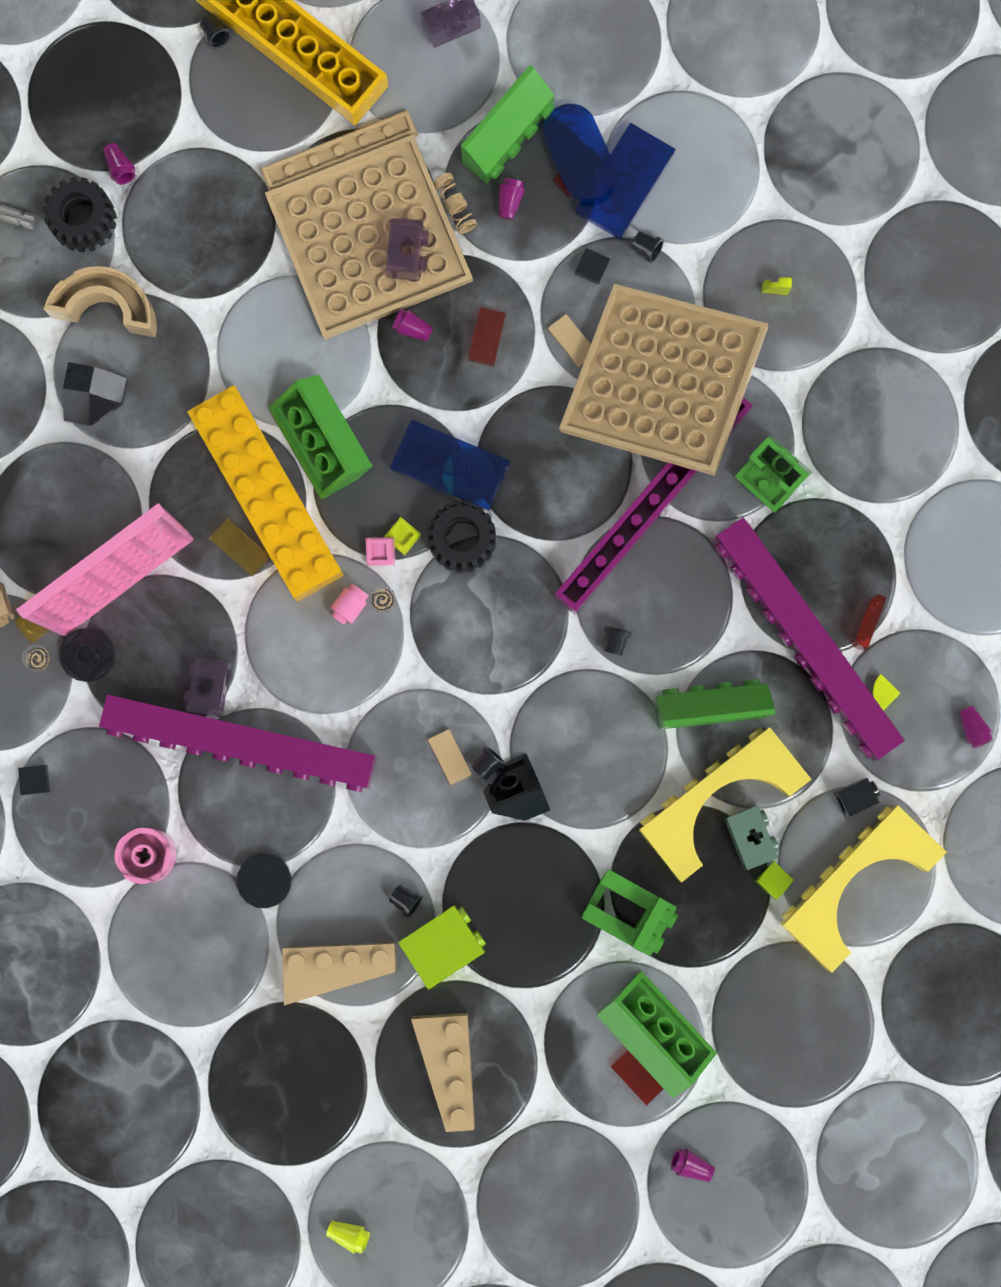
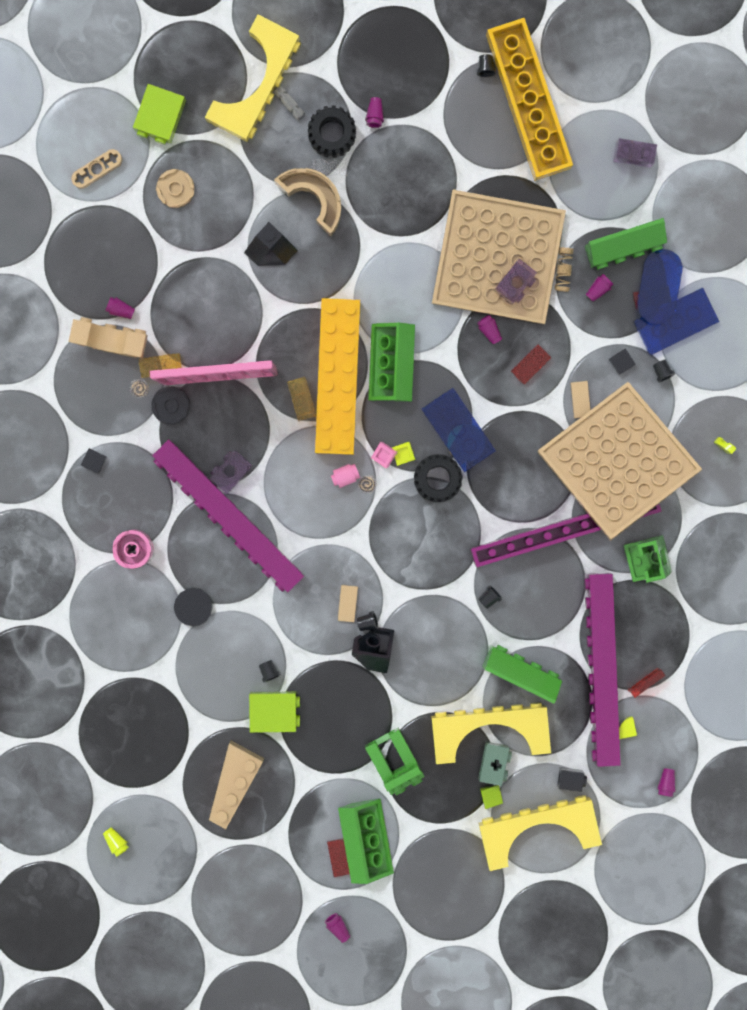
camera: 25 degrees right, 5 degrees up
(326, 968) = (201, 683): tan wedge -> none
(339, 150) = (514, 191): tan tile -> none

